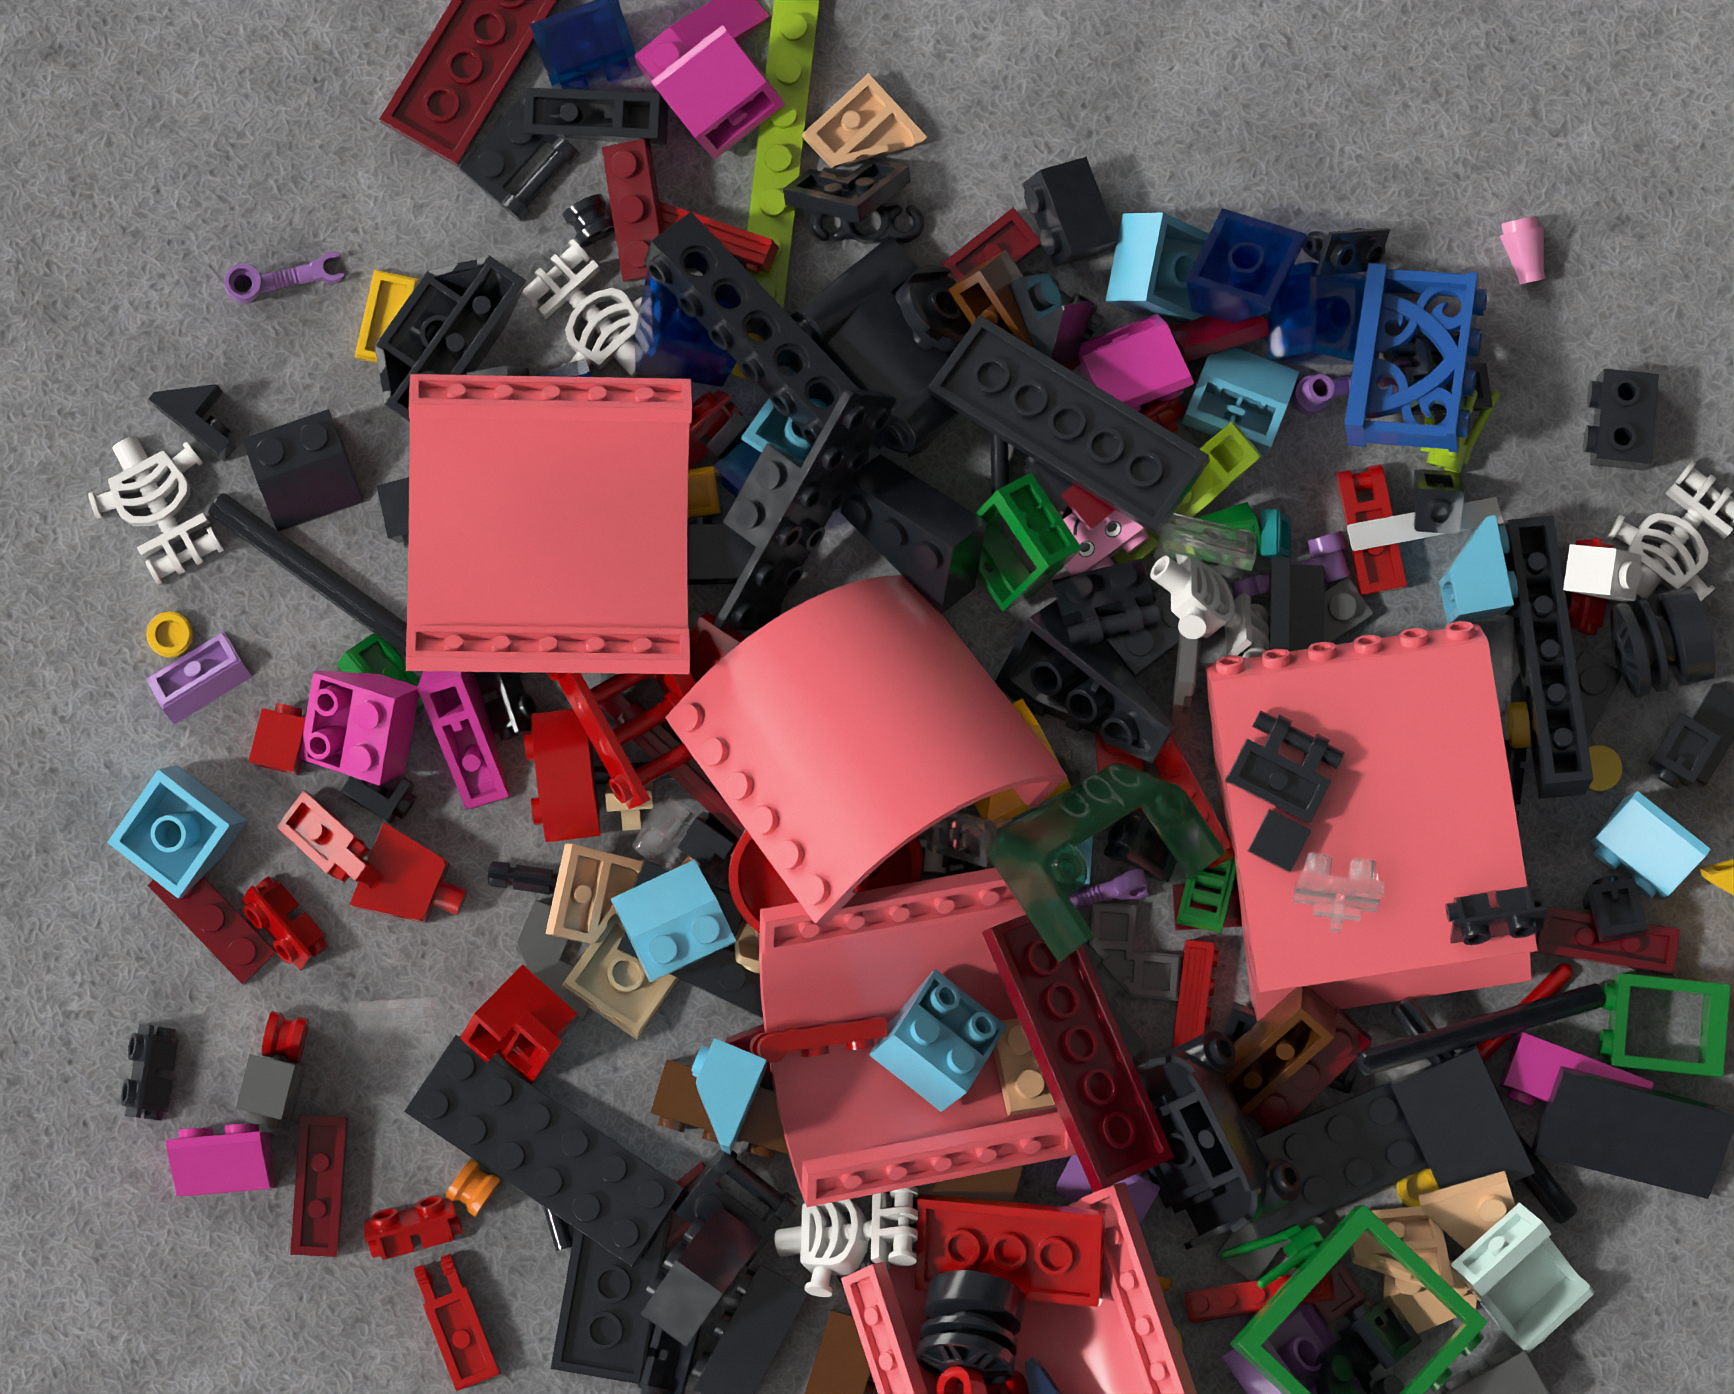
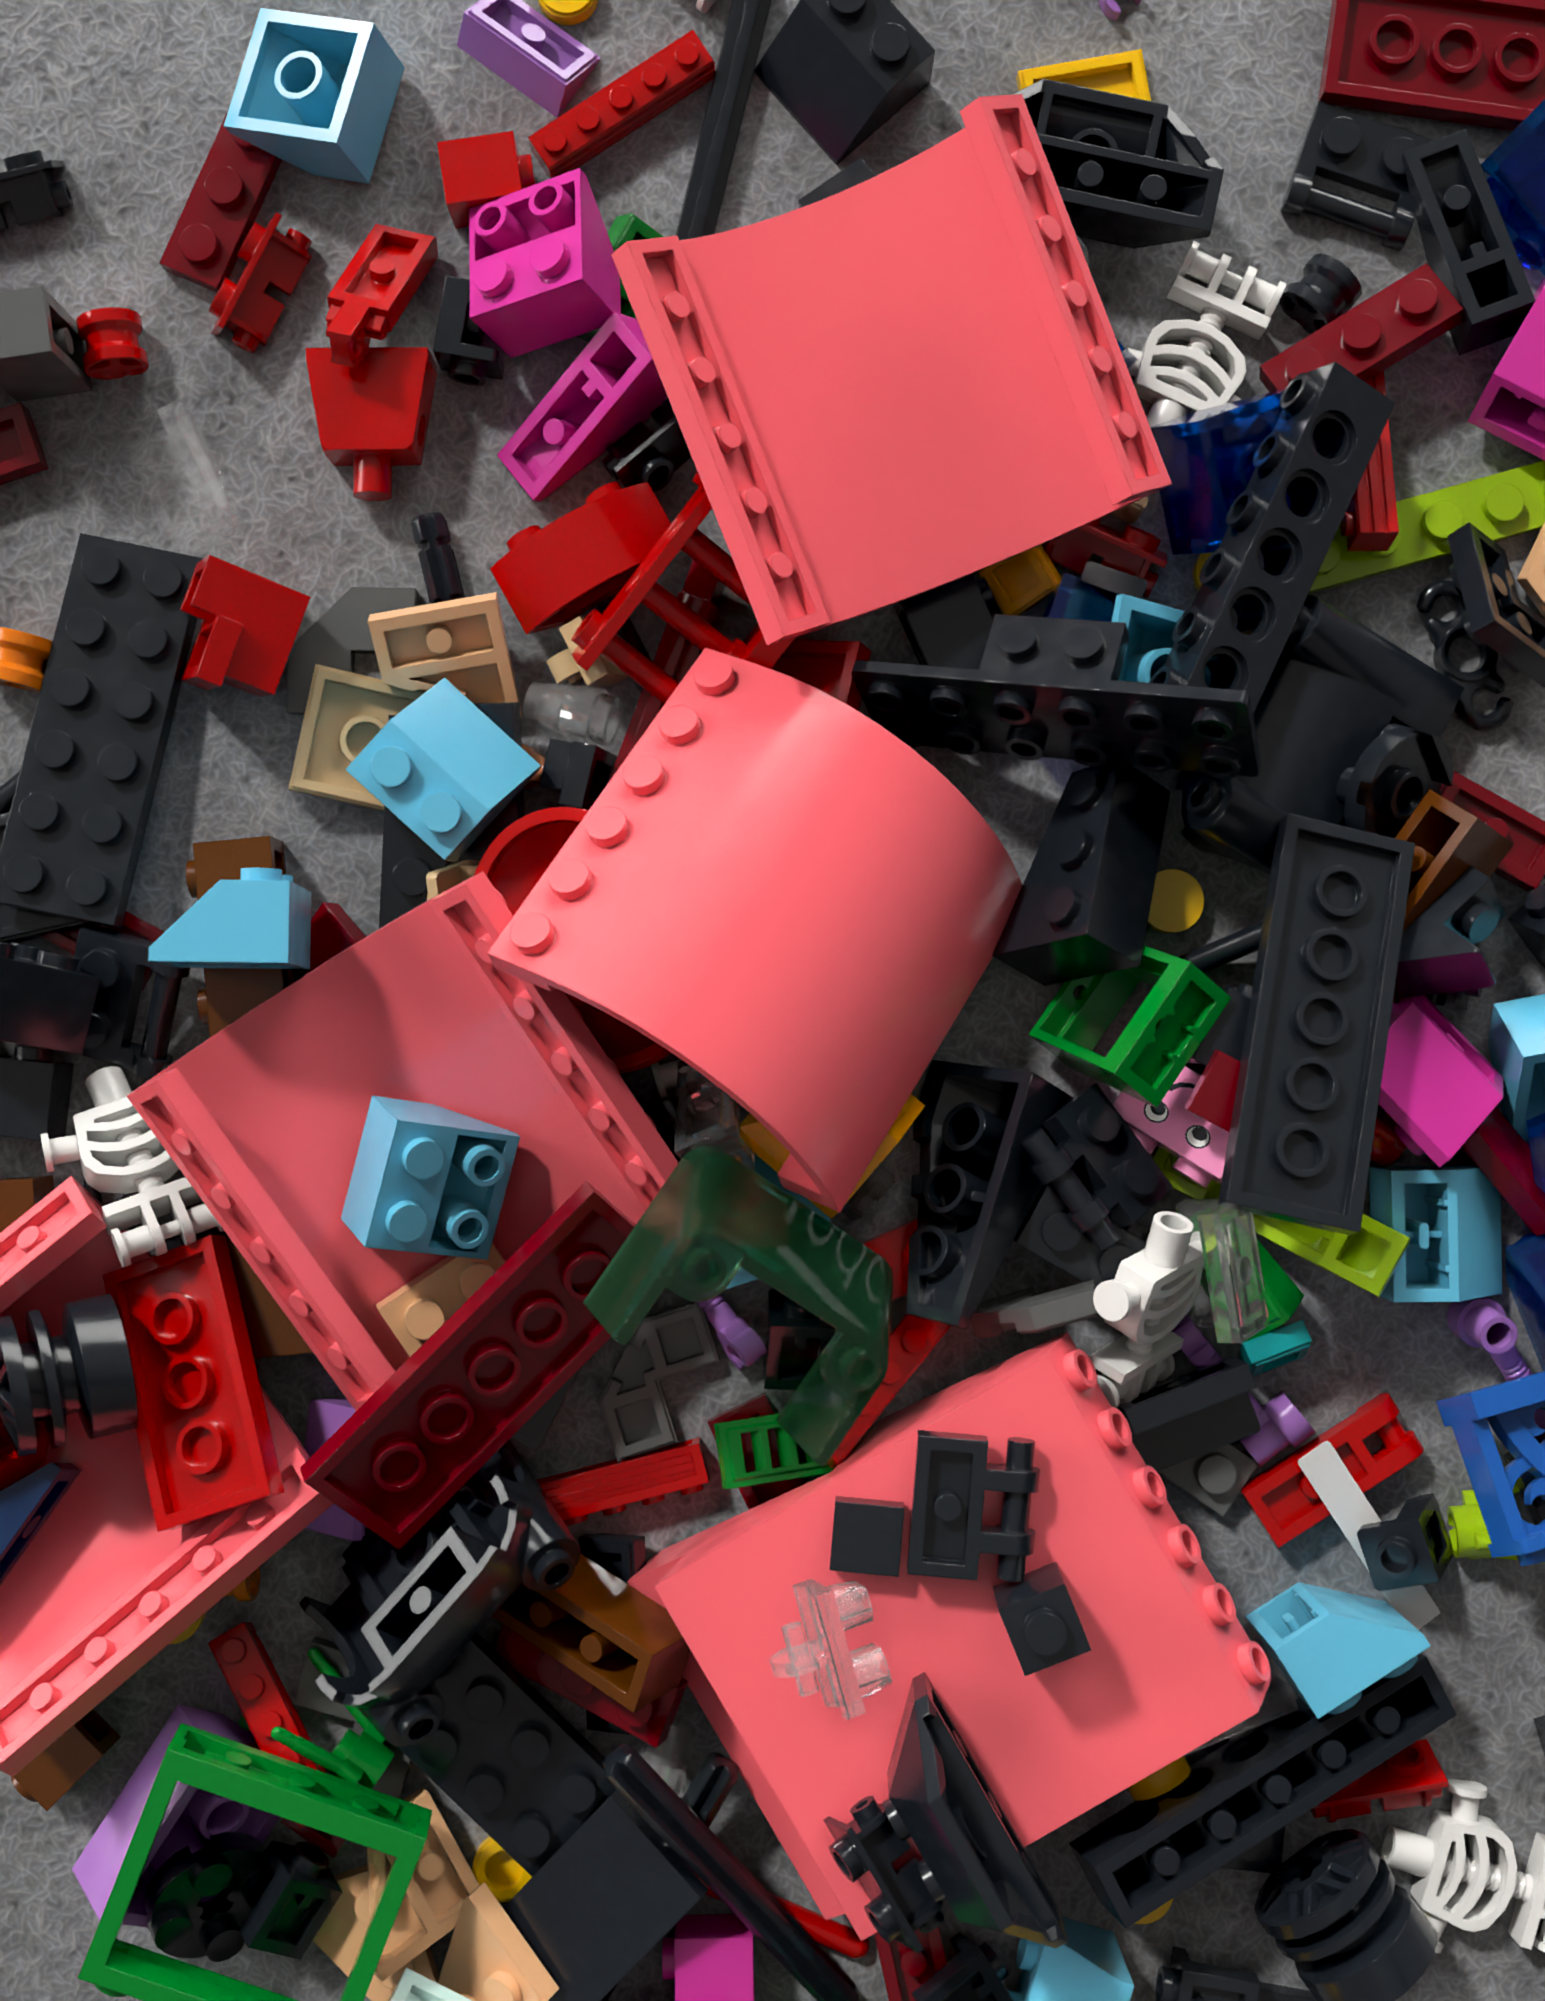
camera: 70 degrees right, 5 degrees up
(267, 629) = (623, 106): none -> red piece
(815, 1039) = (361, 1019): red plate -> none
(953, 479) = (1175, 901): none -> yellow tile
(1370, 750) = (1041, 1619): none -> black brick
(1481, 854) = (962, 1829): none -> black wedge
(1603, 572) = (1410, 1821): white slope -> none

